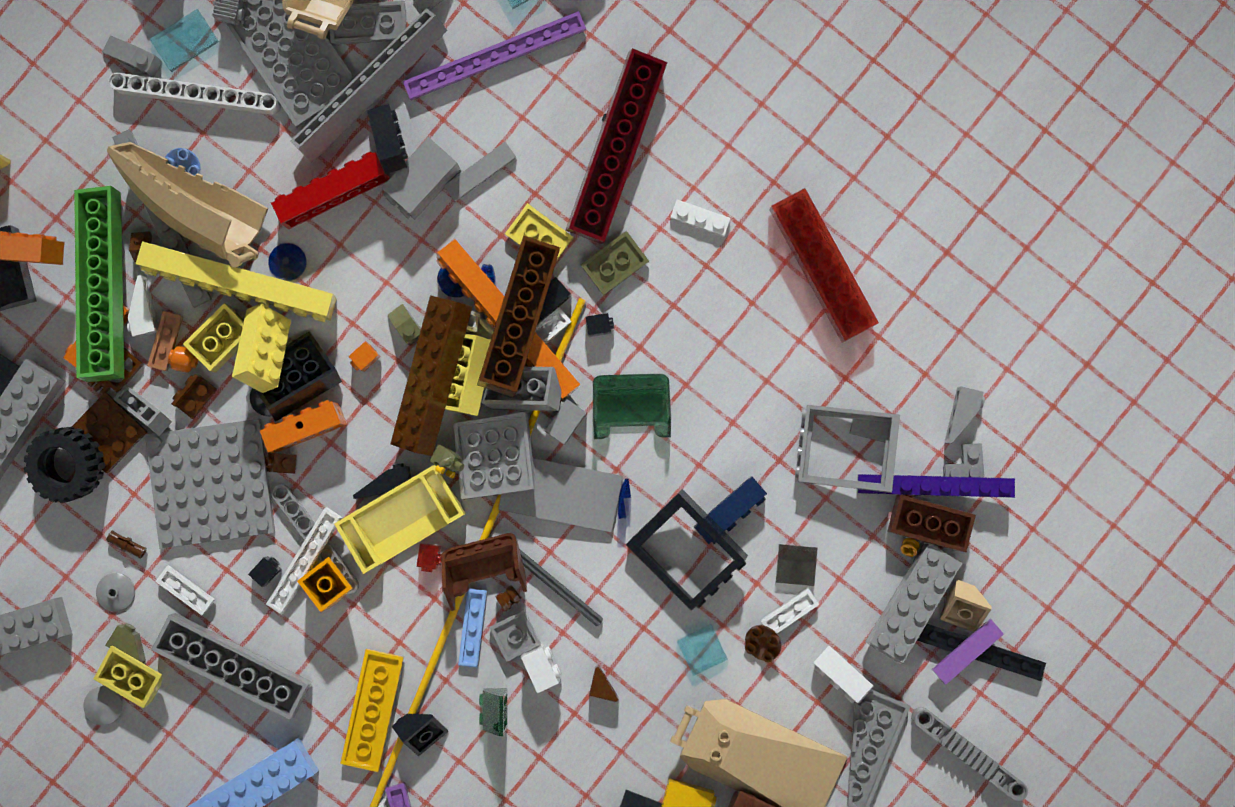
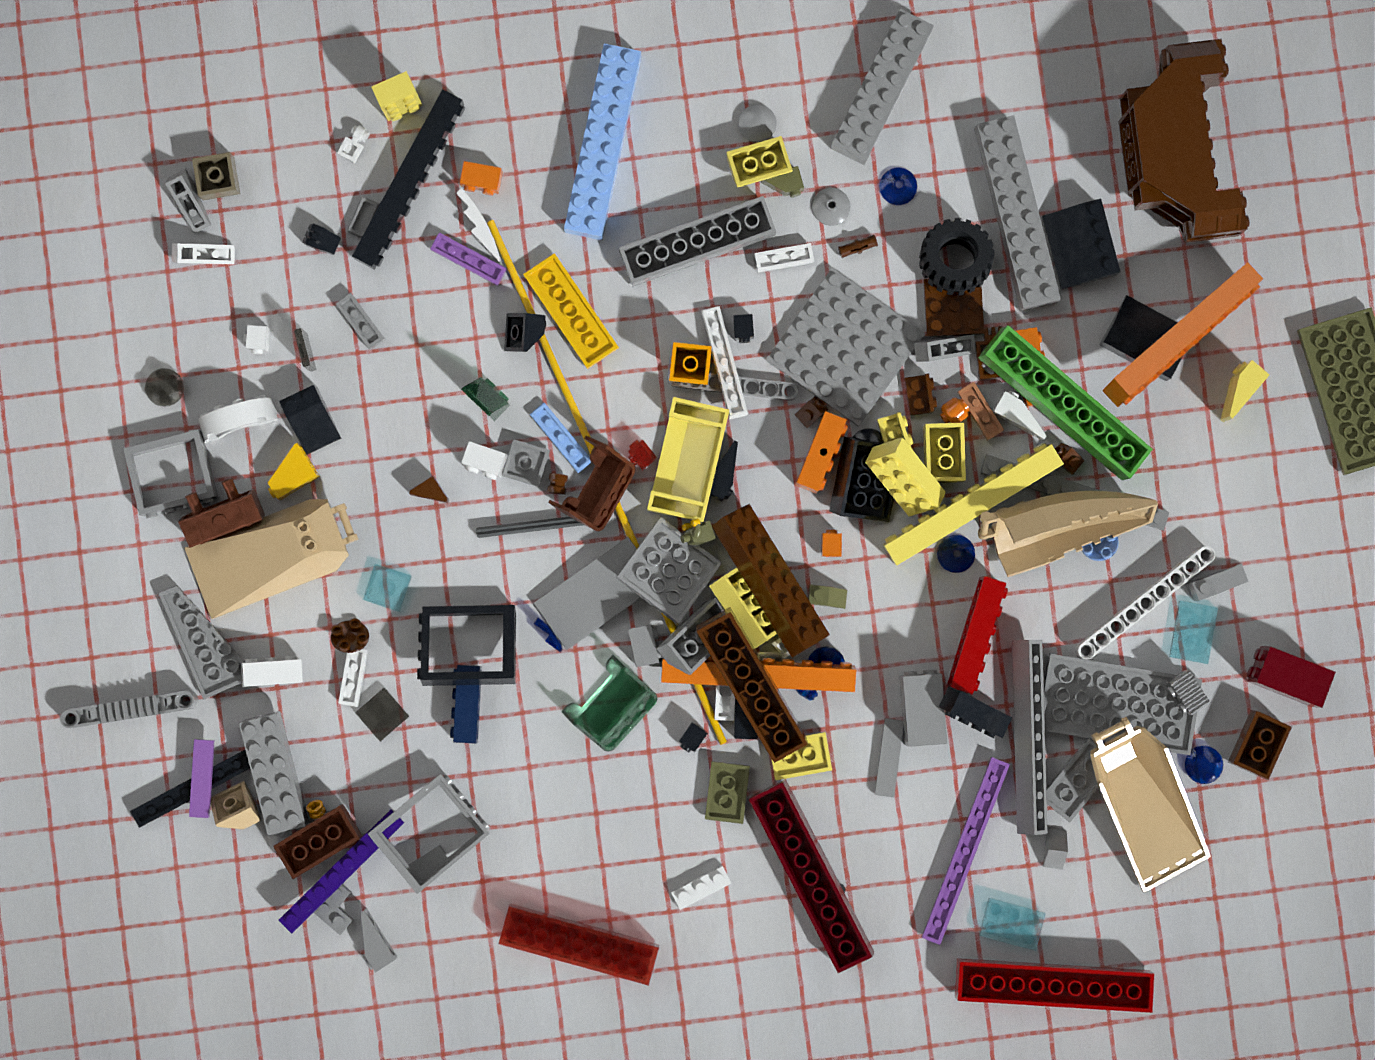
camera: 130 degrees right, 0 degrees up
(62, 554) = (896, 195): none -> clear blue dish
(236, 392) = (893, 428): none -> light yellow bracket

